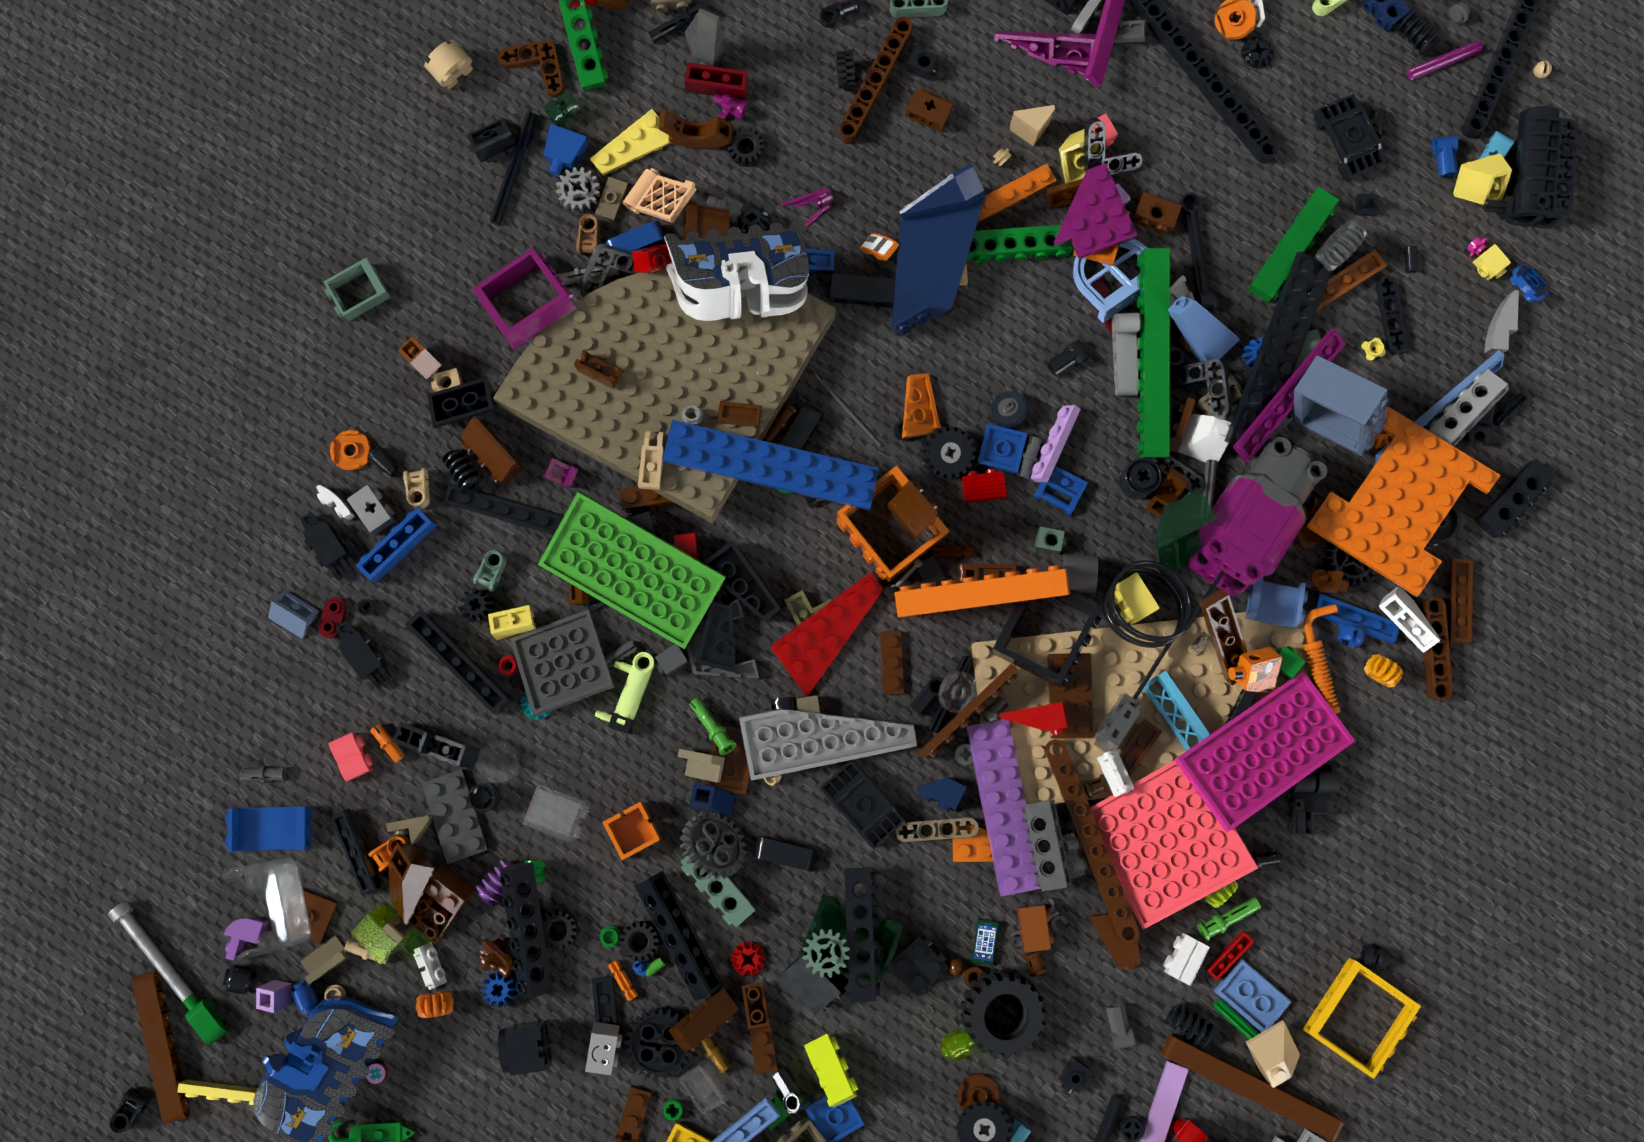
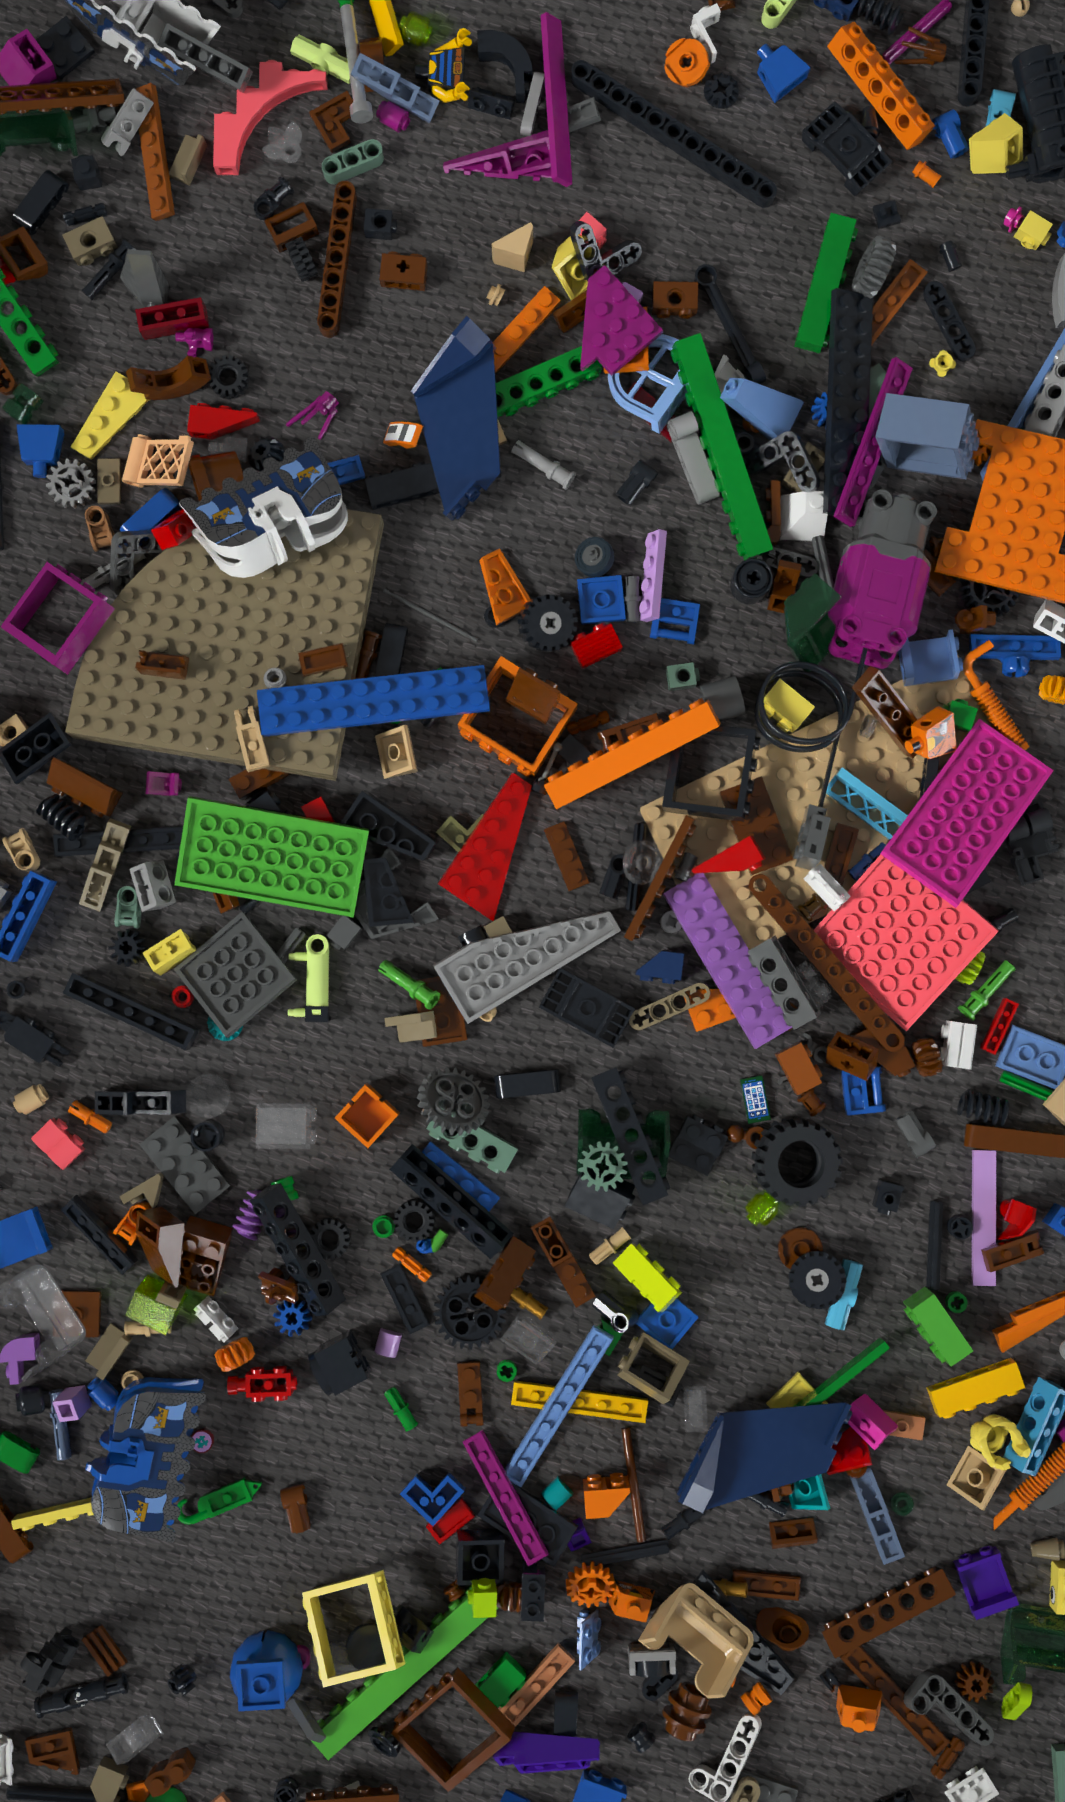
camera: 20 degrees left, 5 degrees up
(254, 1017) = (60, 1430): none -> sand blue pin
(341, 708) = (30, 1099): none -> tan brick
(455, 1046) = (270, 1385): none -> red brick
(484, 525) = (105, 864): none -> dark tan slope
(518, 558) = (152, 885): none -> light grey brick
(565, 1109) = (400, 1408): none -> green axle
(575, 1045) = (388, 1343): none -> lavender brick
(602, 1048) = (416, 1337): light grey brick -> none
(696, 916) = (461, 1176): none -> blue plate
(711, 799) = (435, 1056): dark blue slope -> none
(723, 181) = (215, 422): none -> red slope
(758, 959) = (524, 1189): red gear -> none
(774, 518) = (396, 752): none -> tan slope
(806, 1029) = (609, 1246): none -> tan axle
(859, 47) = (305, 230): none -> reddish brown tile
(998, 321) = (552, 469): none -> light grey pin
(1078, 969) = (856, 1093): none -> blue plate
(1086, 934) = (852, 1055): none -> reddish brown brick
(1154, 960) = (926, 1057): none -> reddish brown gear
(1159, 762) = (866, 861): none -> dark blue pin
(1315, 53) = (780, 70): none -> blue torso
(1398, 94) = (880, 85): none -> orange brick
(1413, 182) = (926, 174): none -> orange pin
(1453, 81) = (933, 51): none -> reddish brown plant

